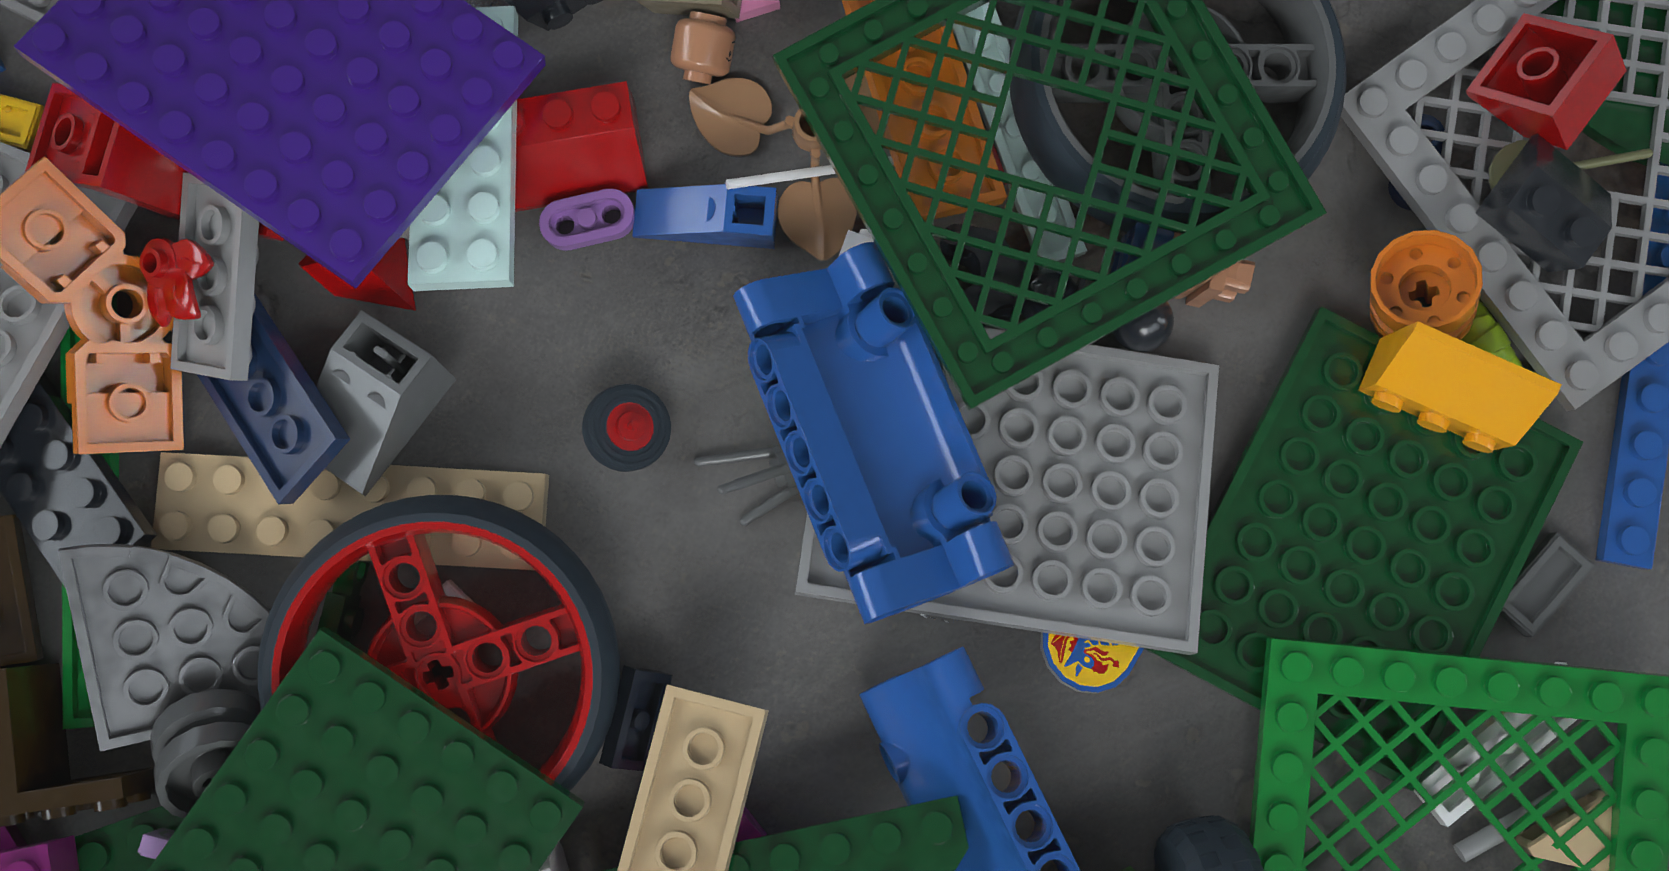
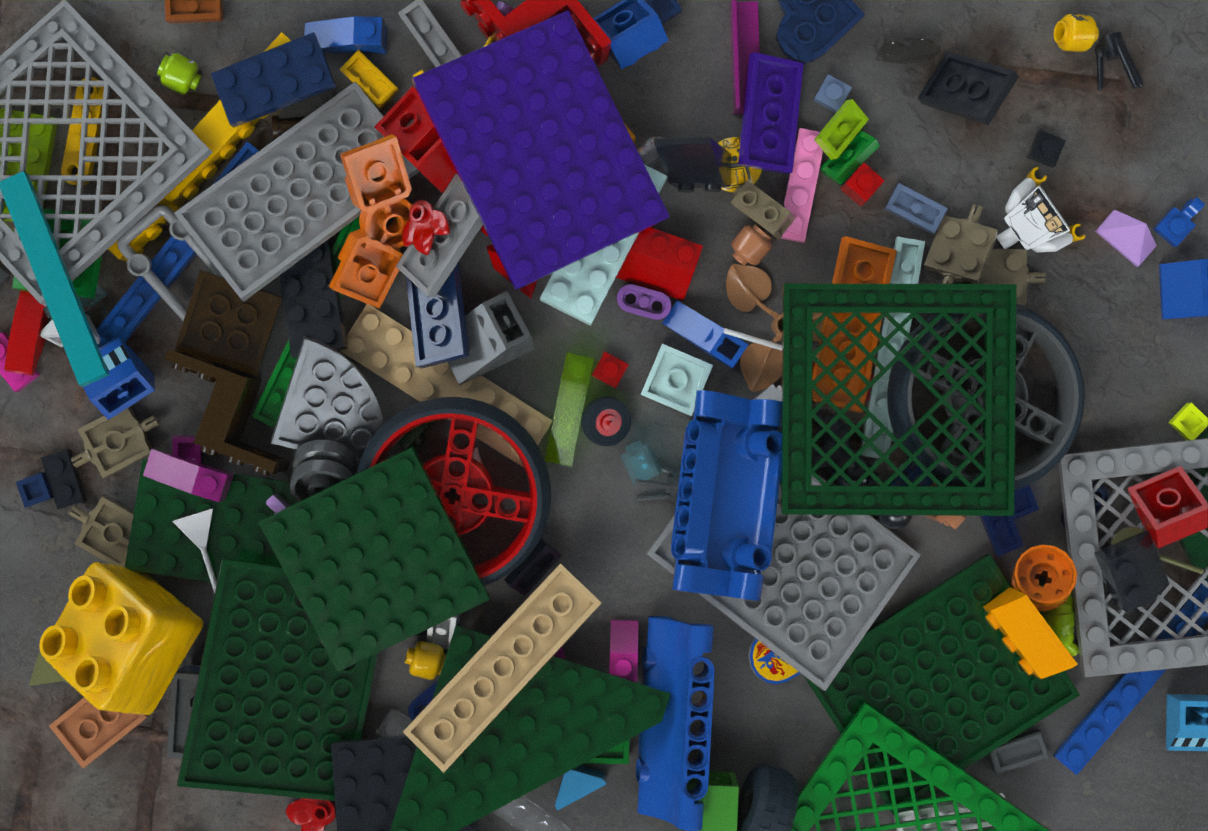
camera: 25 degrees right, 5 degrees up
(555, 429) = (569, 409): none -> clear neon green slope
(593, 349) = (610, 370): none -> red plate
(697, 307) = (676, 379): none -> light aqua plate
(712, 458) = (640, 461): none -> clear light blue brick
(849, 767) = (624, 649): none -> dark pink slope
(1312, 255) = (1003, 530): none -> clear blue plate

